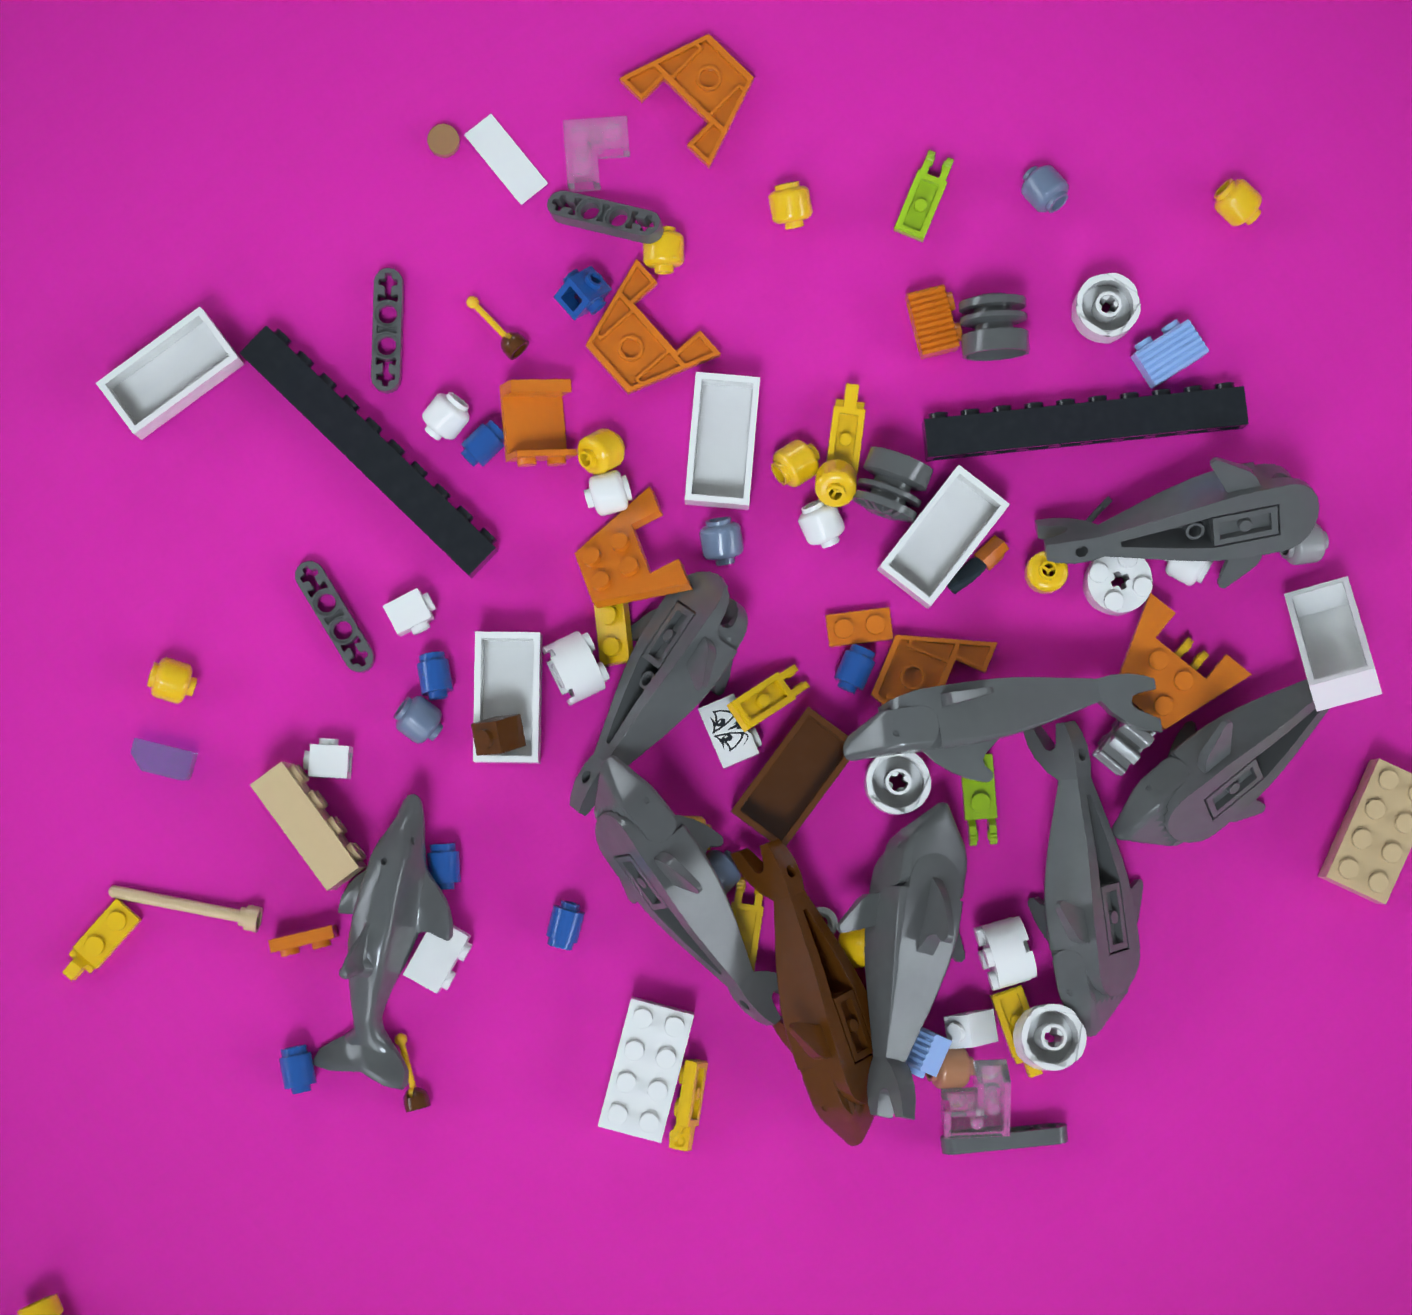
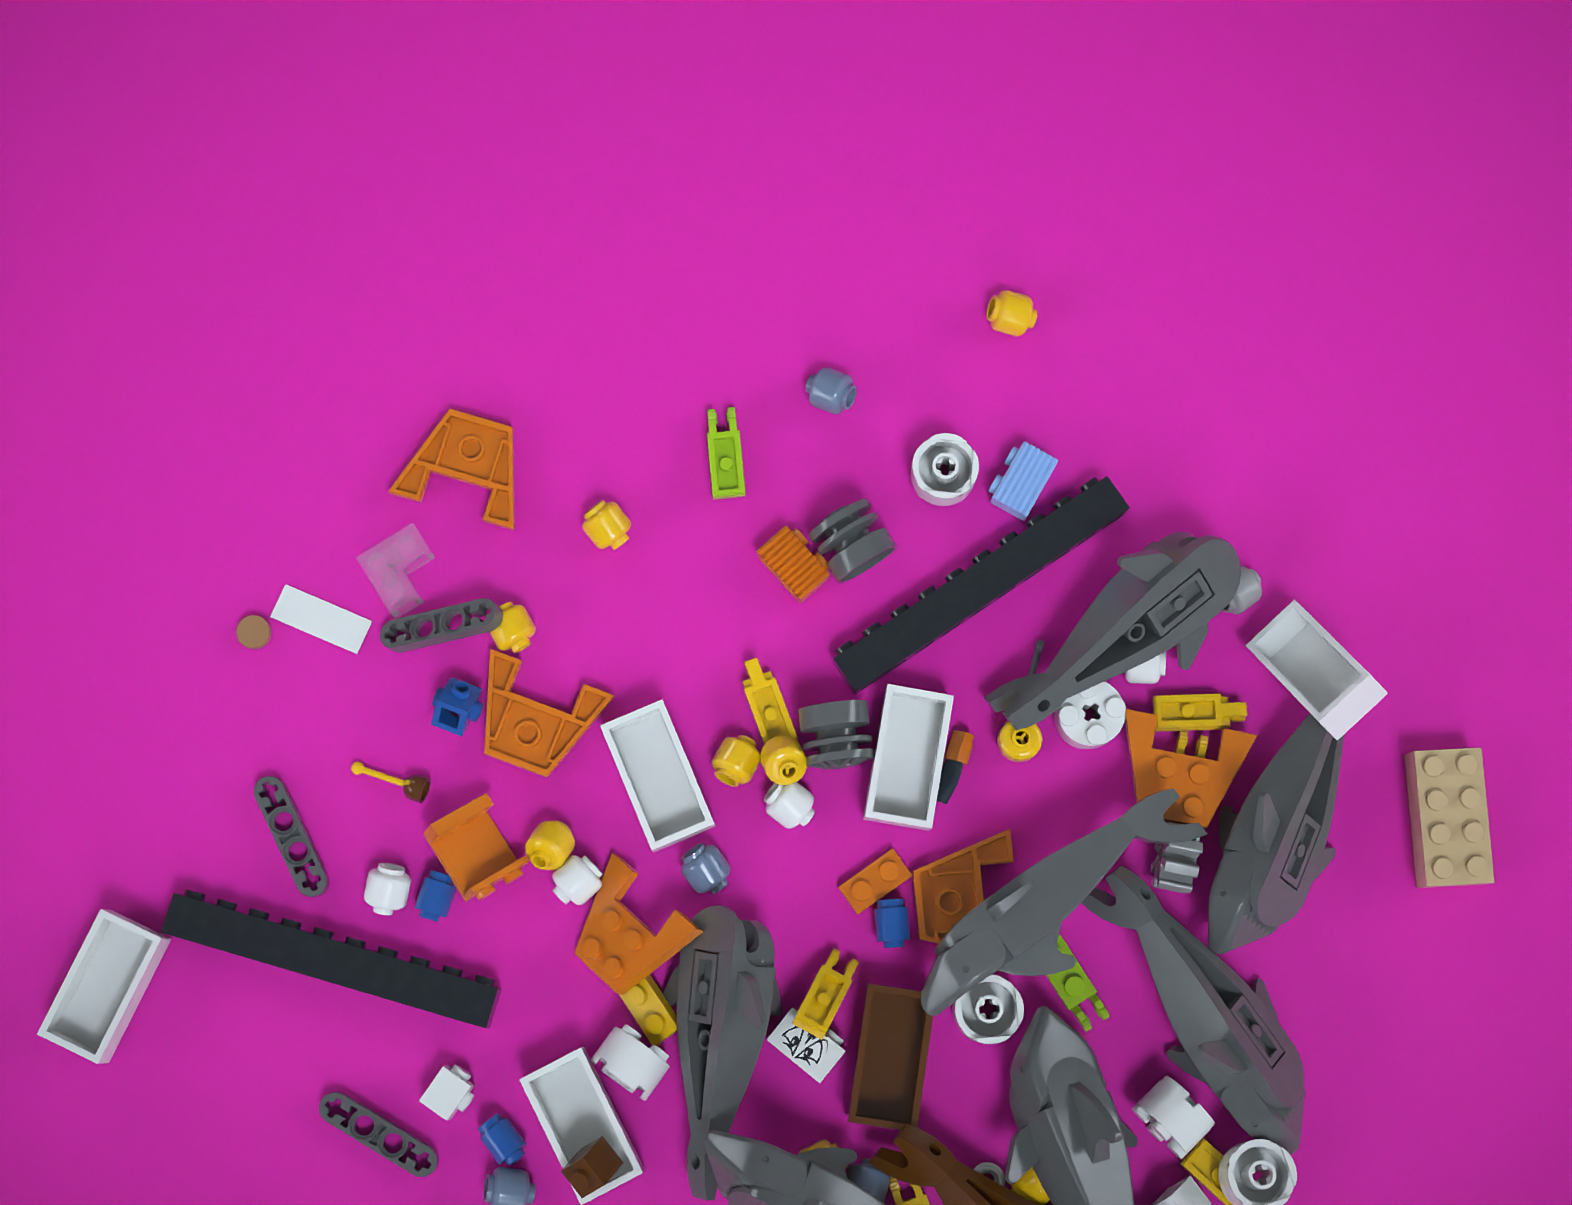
camera: 30 degrees left, 5 degrees down
(1210, 628) = (1196, 712): none -> yellow hinge

